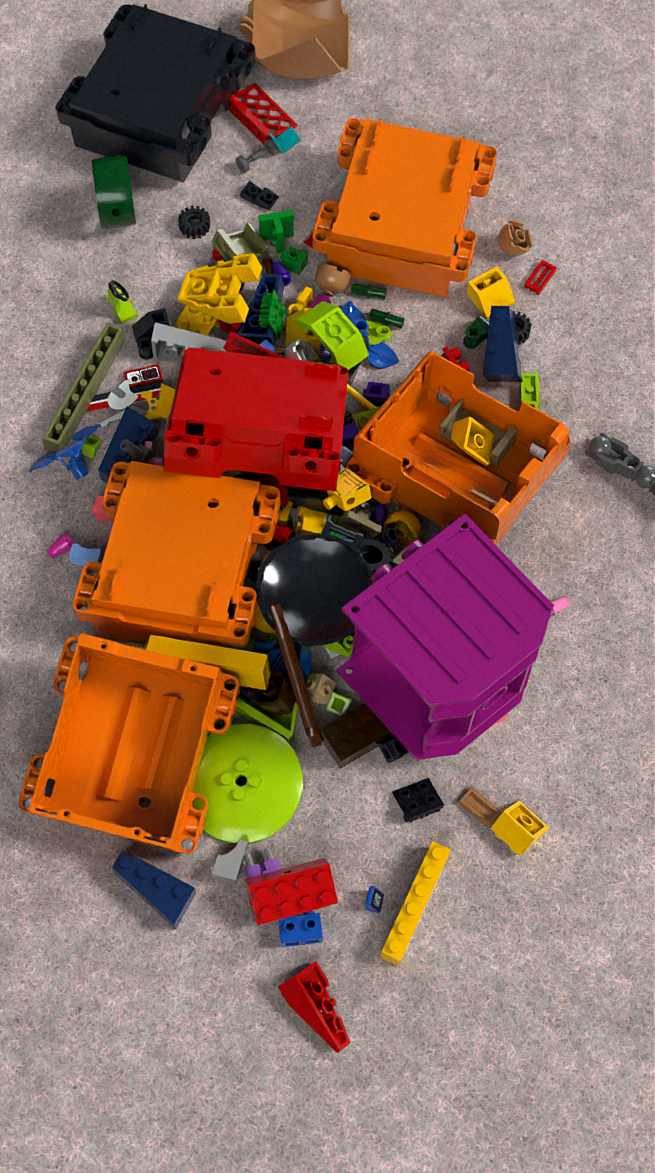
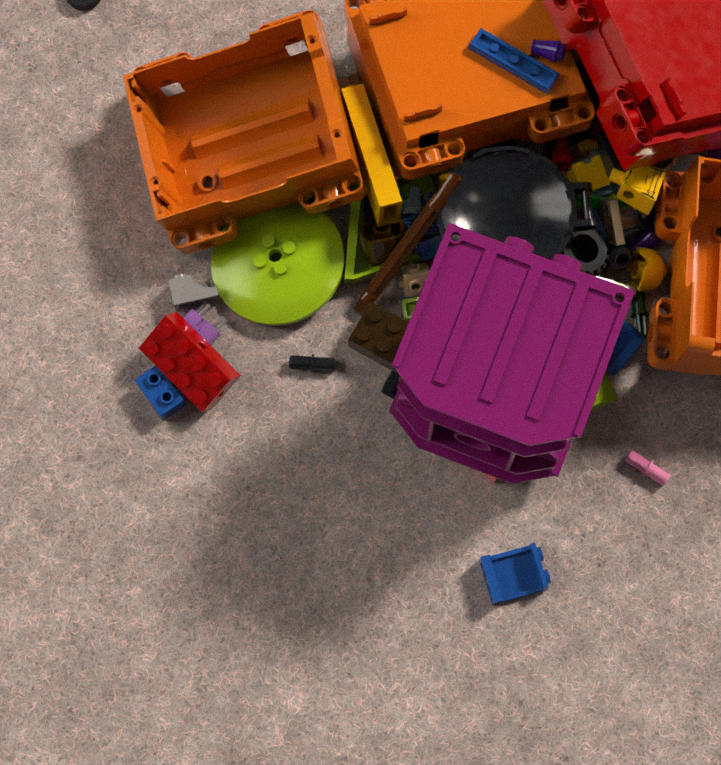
camera: 65 degrees right, 10 degrees up
(157, 888) = (129, 239): dark blue wedge -> none
(206, 516) = (513, 61): none -> blue tile
(215, 486) = (549, 49): none -> dark purple cone
(310, 1000) = (96, 441): red wedge -> none
(340, 801) = (311, 363): none -> black axle
(374, 900) = (228, 447): slope -> none
(415, 903) = (245, 488): yellow brick -> none
(418, 800) = (355, 437): black hinge -> none
(479, 807) = (383, 502): medium nougat tile -> none
(519, 828) = (382, 552): yellow slope -> none
(584, 741) = (514, 573): none -> blue panel

